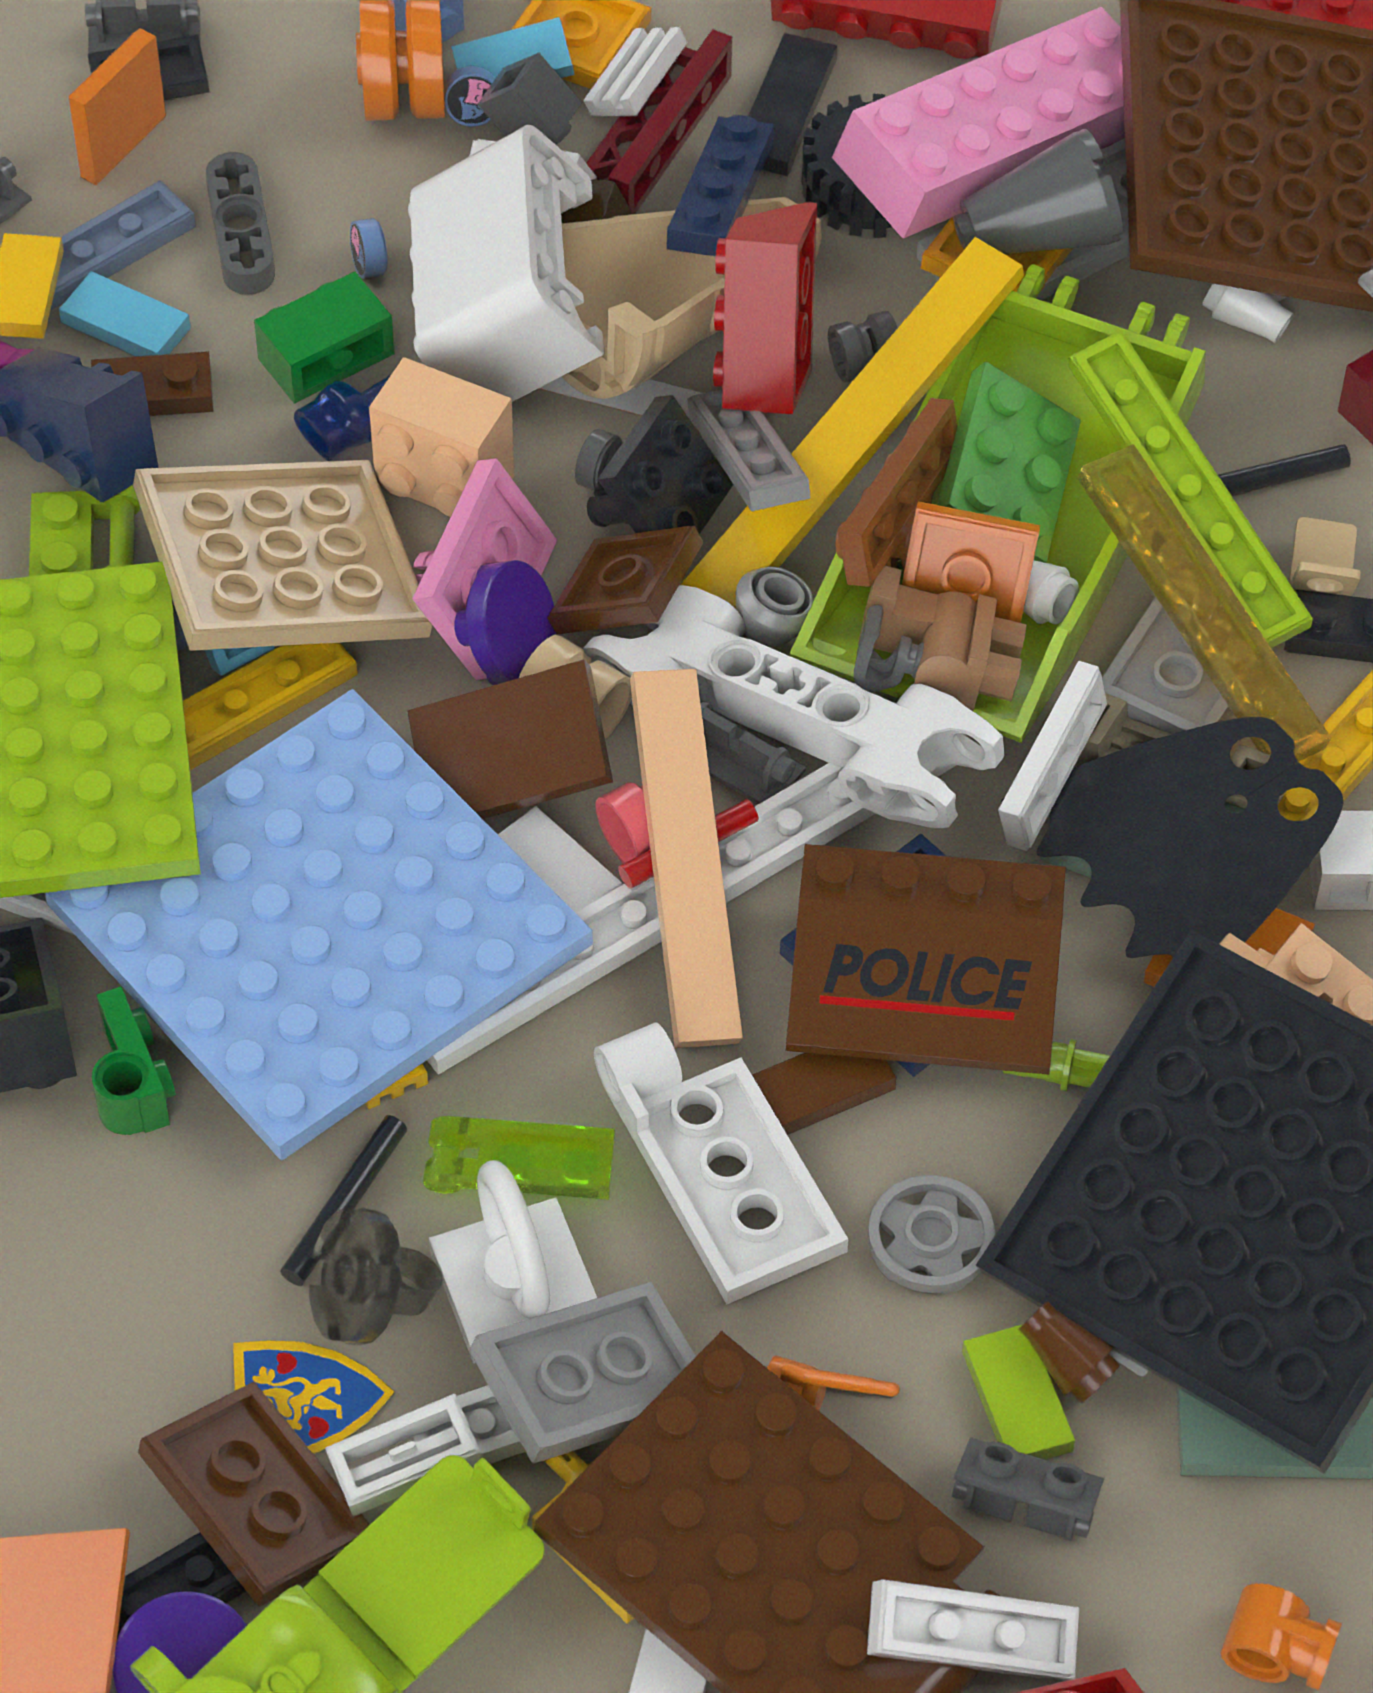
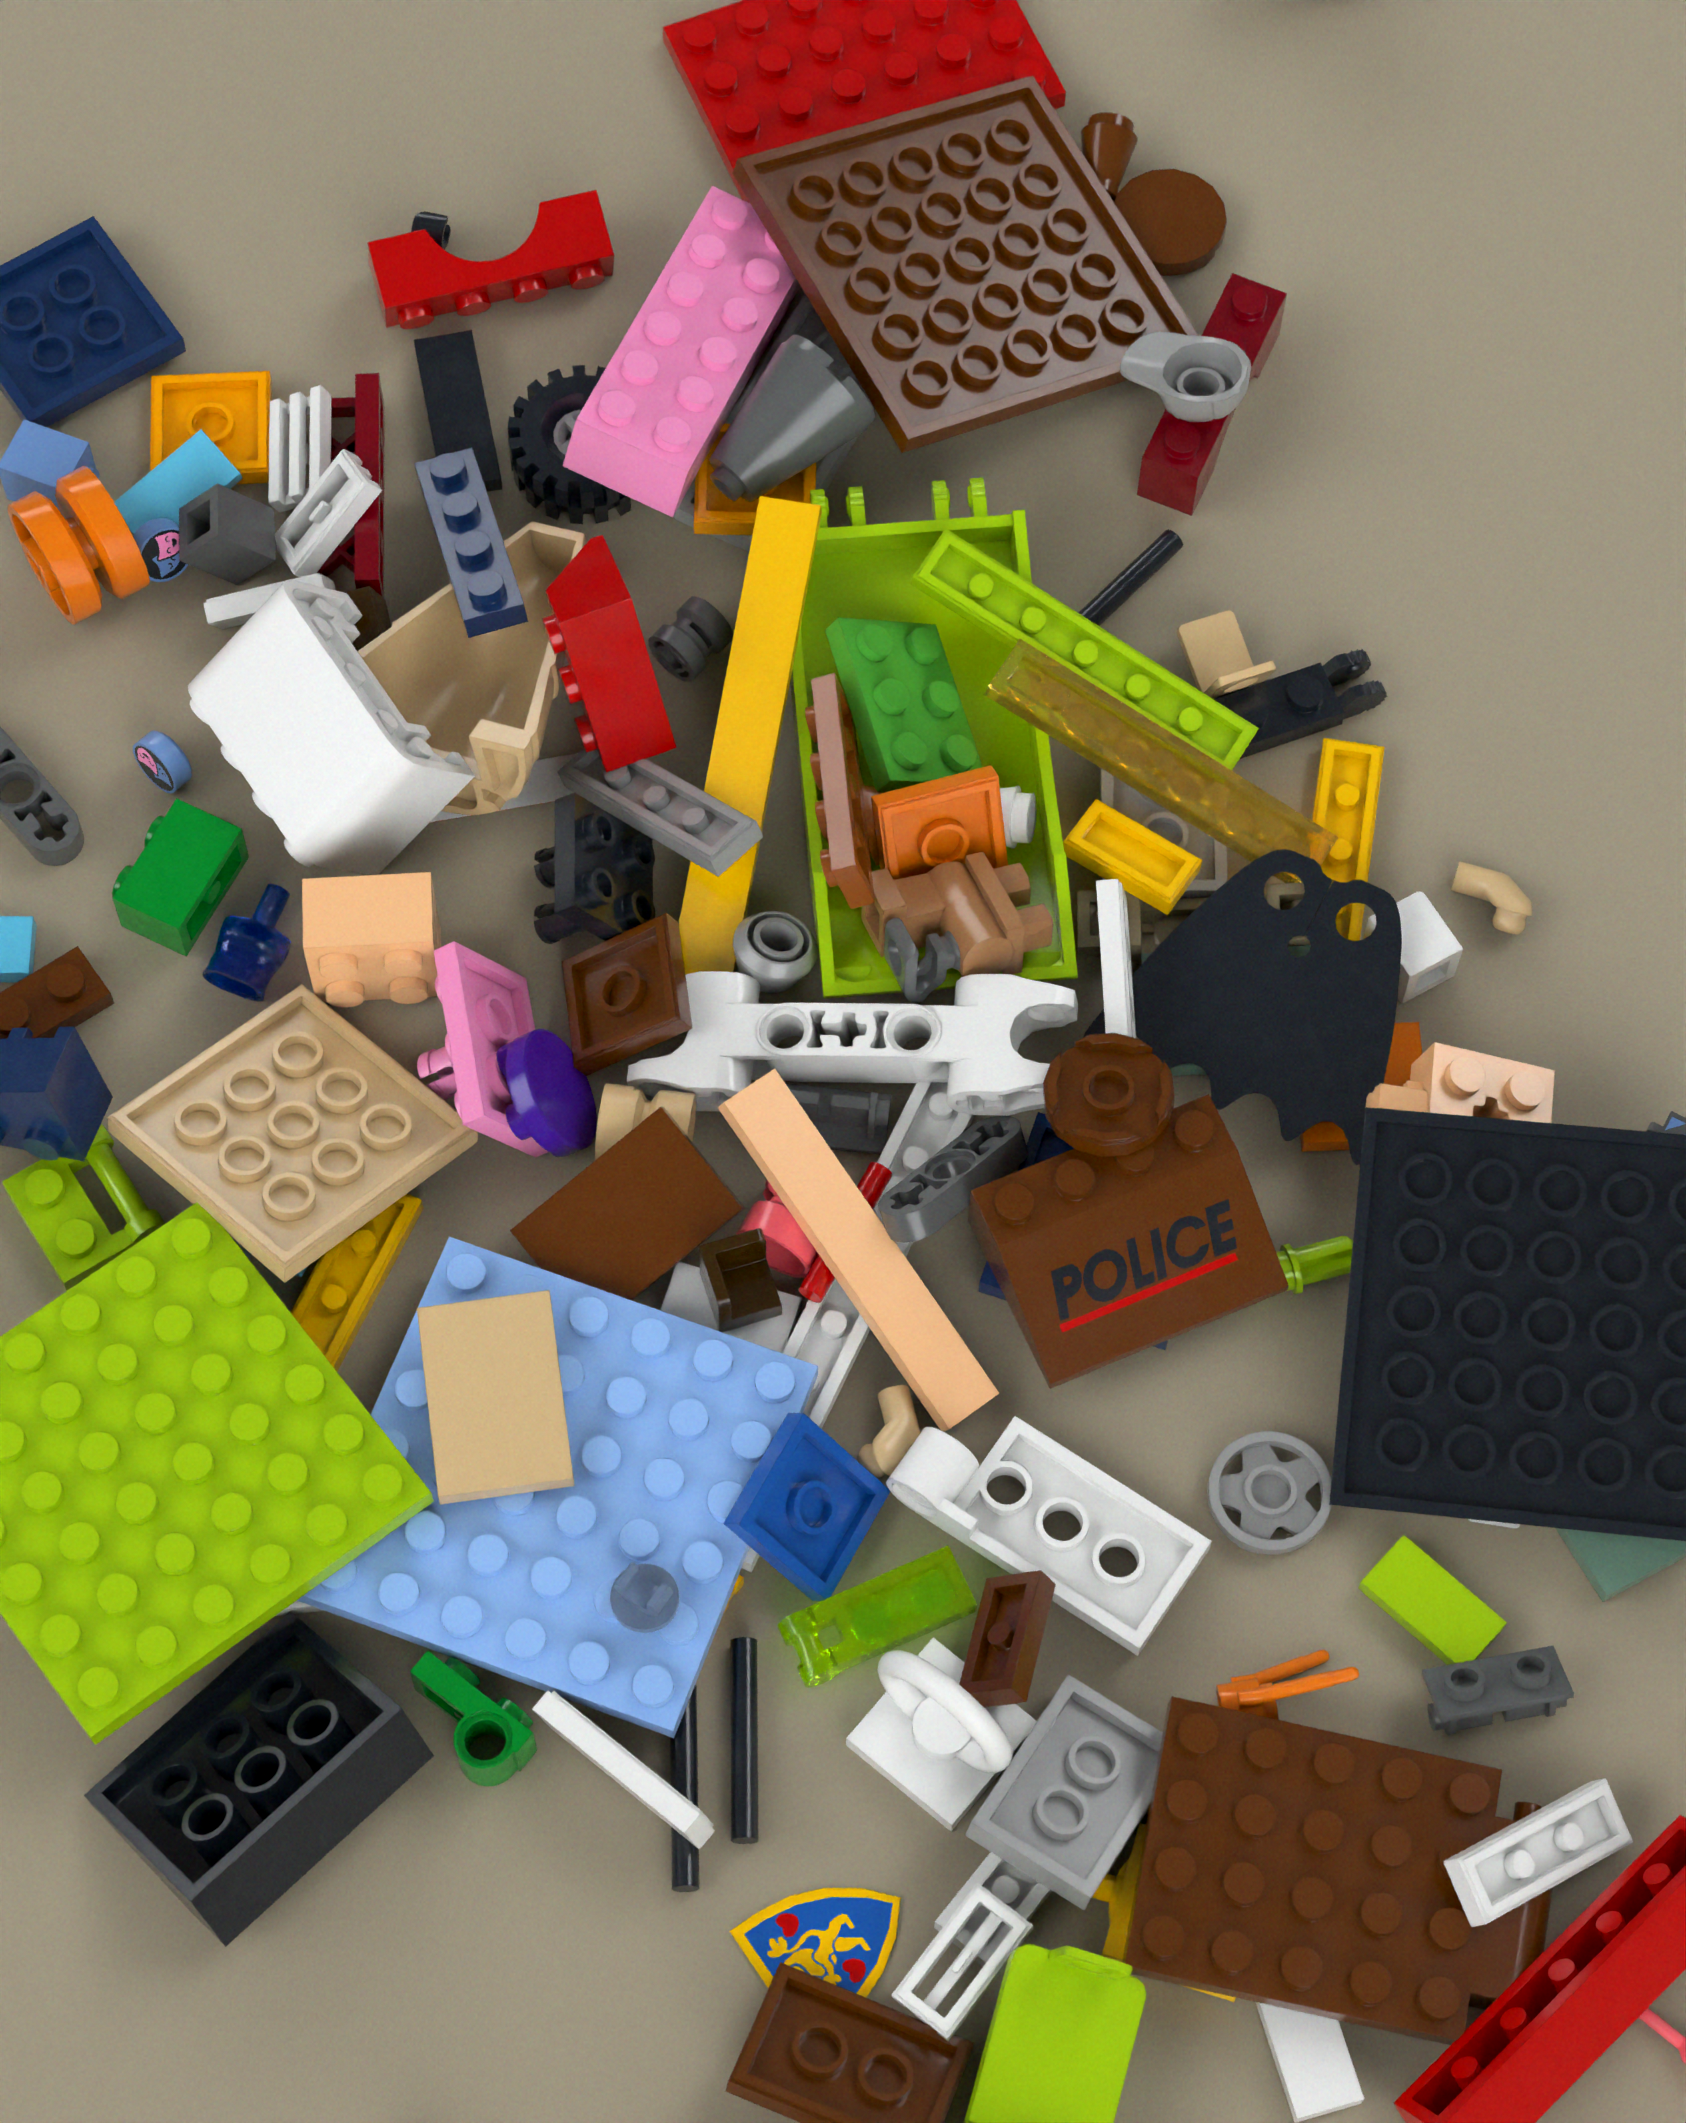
camera: 30 degrees left, 10 degrees up
(223, 1161) = (624, 1768): none -> white tile
(266, 1215) = (685, 1780): none -> black bar
(302, 817) = (495, 1397): none -> tan tile
(318, 1023) = (644, 1598): none -> sand blue plate
(364, 1277) = (823, 1813): clear smoke tile -> none
(511, 1035) = (807, 1507): none -> blue plate
(571, 834) = (739, 1280): none -> dark brown panel
(595, 456) = (520, 879): dark grey tile -> none
(612, 1223) = (1007, 1638): none -> reddish brown plate
(621, 119) = (326, 514): none -> white tile
(646, 1009) = (896, 1436): none -> tan arm
(783, 840) = (943, 1183): none -> dark grey beam
(821, 1086) = (1089, 1406): reddish brown tile -> none
(972, 821) = (1108, 1095): none -> reddish brown tile
(1069, 1352) = (1462, 1546): reddish brown cone -> none
(1134, 671) = (1133, 854): none -> yellow tile
(1248, 310) = (1016, 434): white cone -> none

